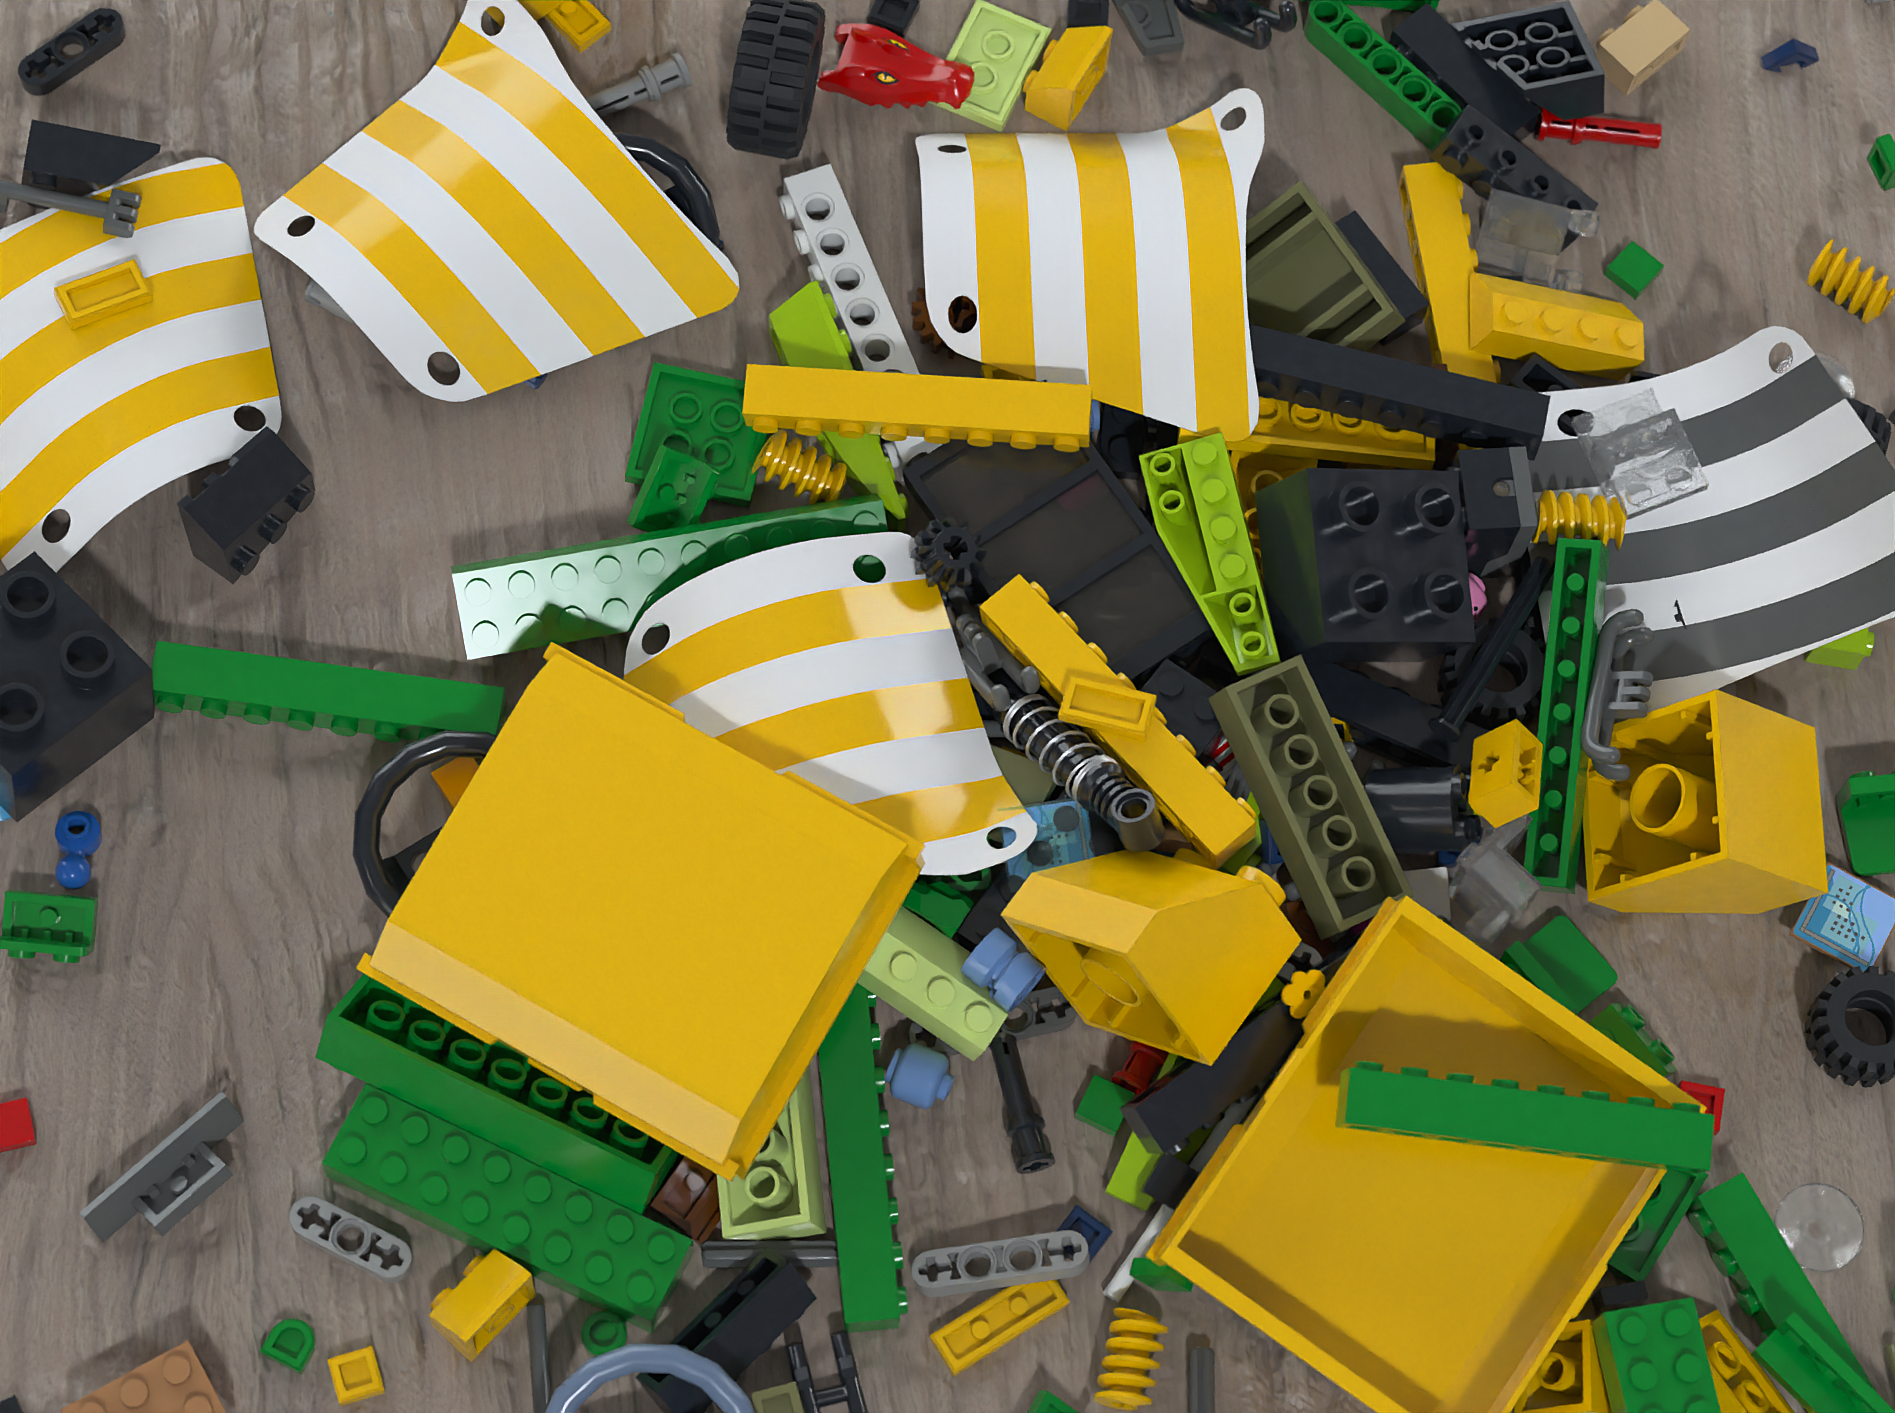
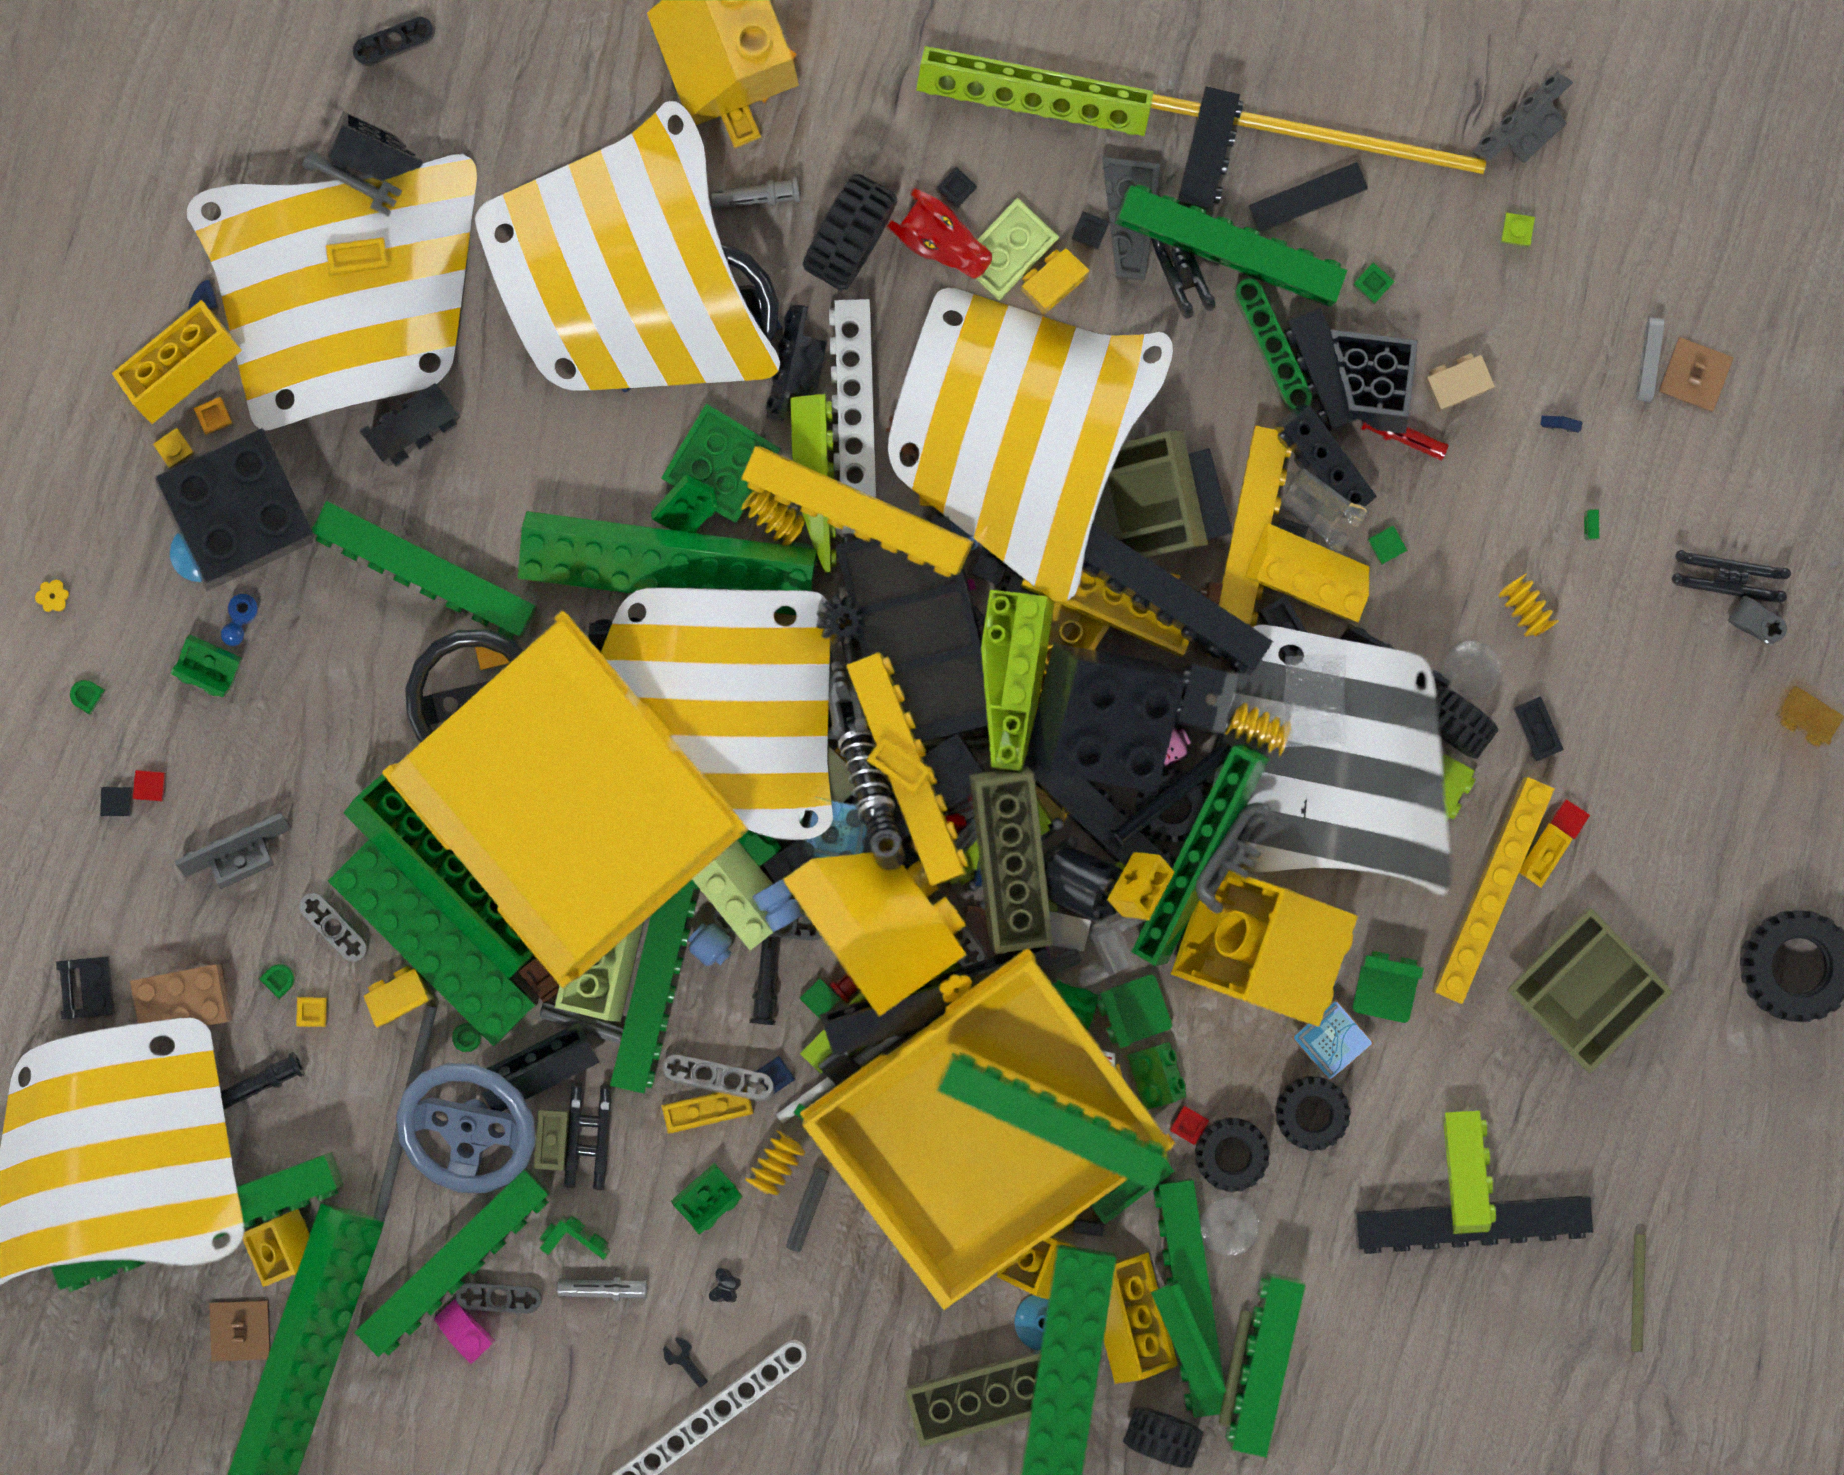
camera: 30 degrees right, 20 degrees up
(764, 276) = (799, 366): none -> black bracket
(1799, 1094) = (1246, 1176): none -> black tyre

